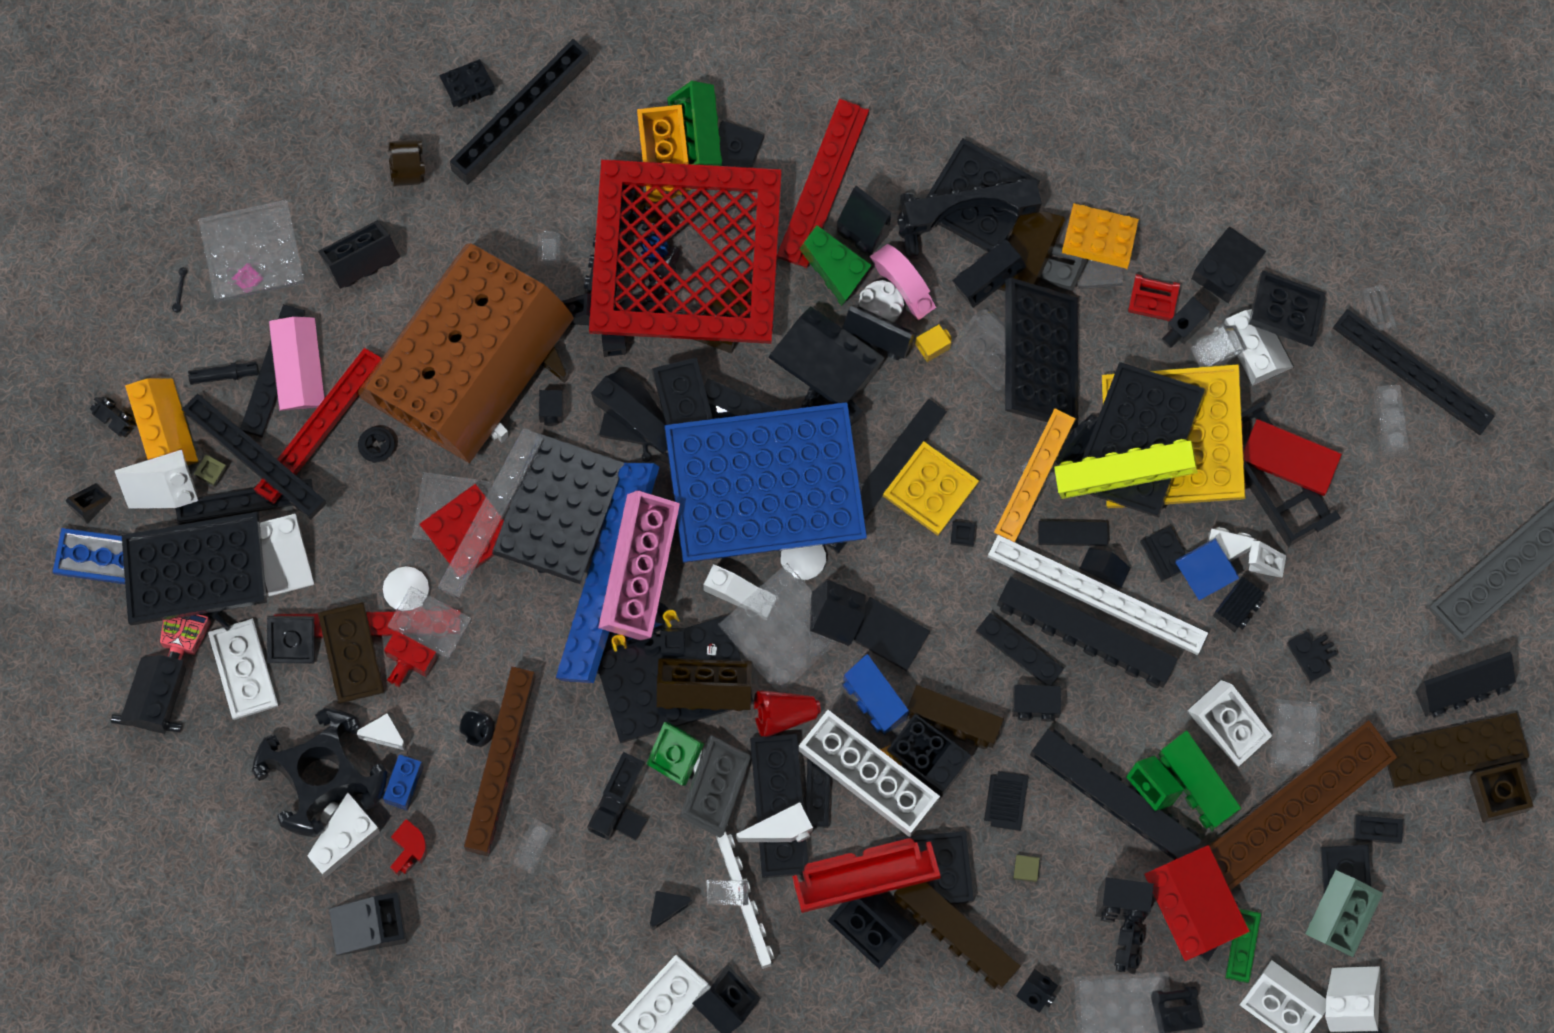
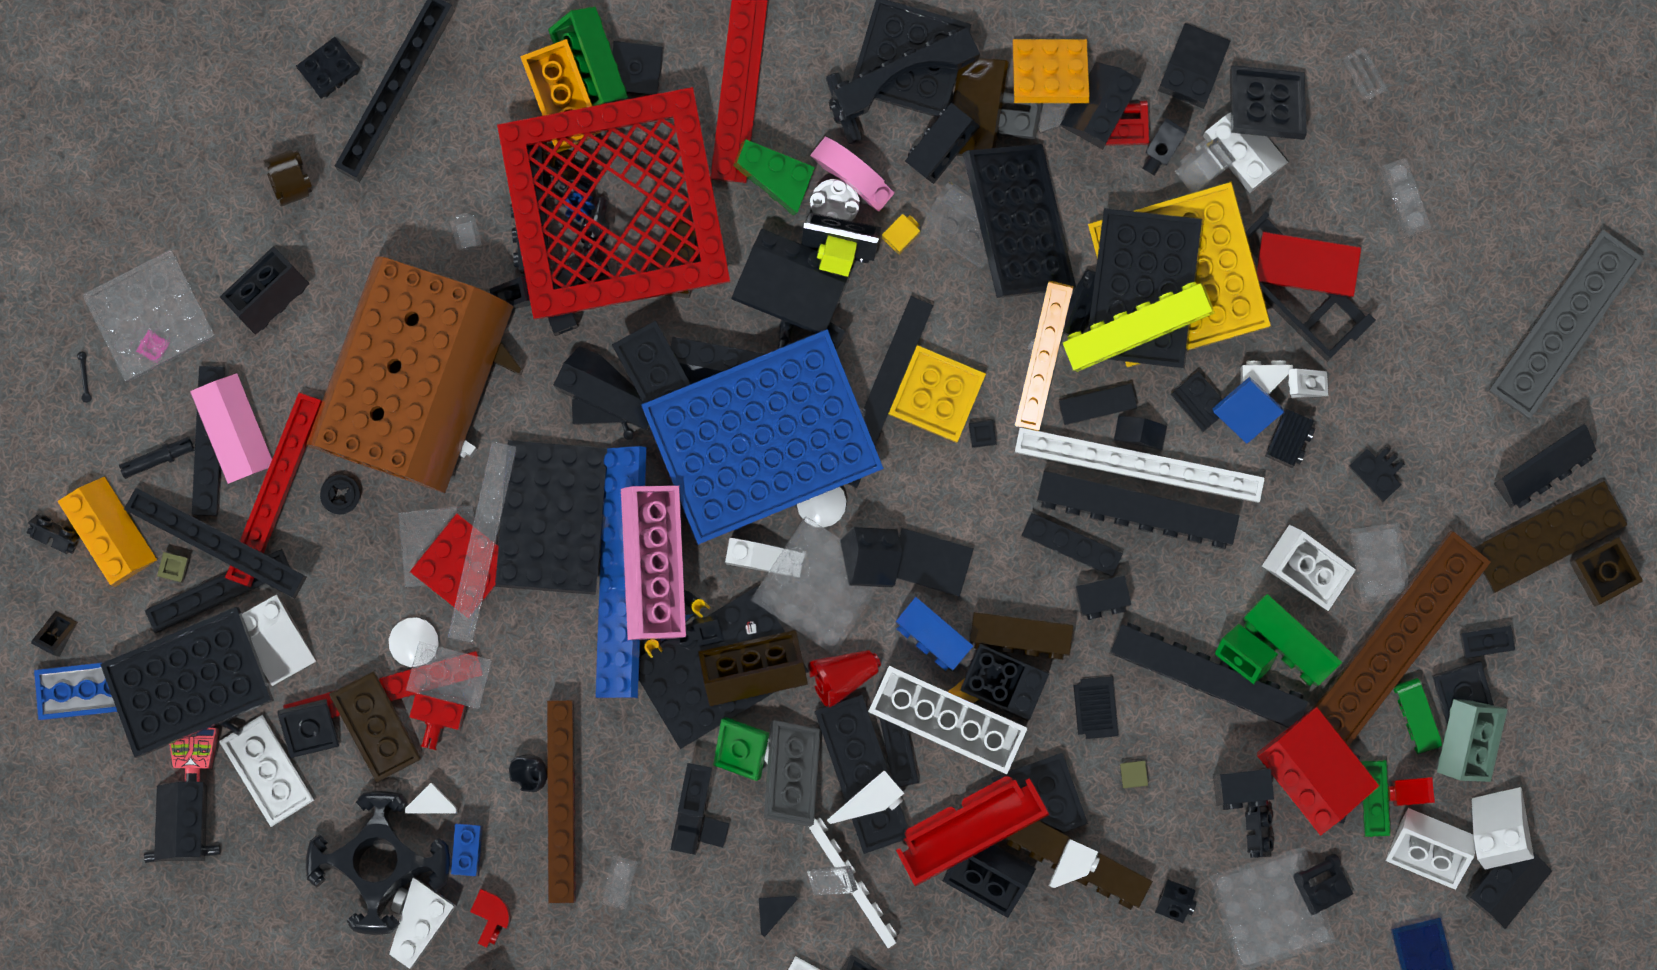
camera: 10 degrees left, 10 degrees up
(158, 482) = (123, 597): white slope -> none
(550, 407) = (514, 407): black brick -> none
(864, 221) = (794, 121): black slope -> none
(871, 342) = (837, 255): none -> neon yellow brick
(952, 930) = (1074, 863): none -> white slope
(1147, 269) = (1109, 97): none -> black slope
(1278, 944) = (1411, 791): none -> red slope
(1300, 880) = (1418, 715): none -> green beam
(1413, 372) = (1417, 136): black plate -> none

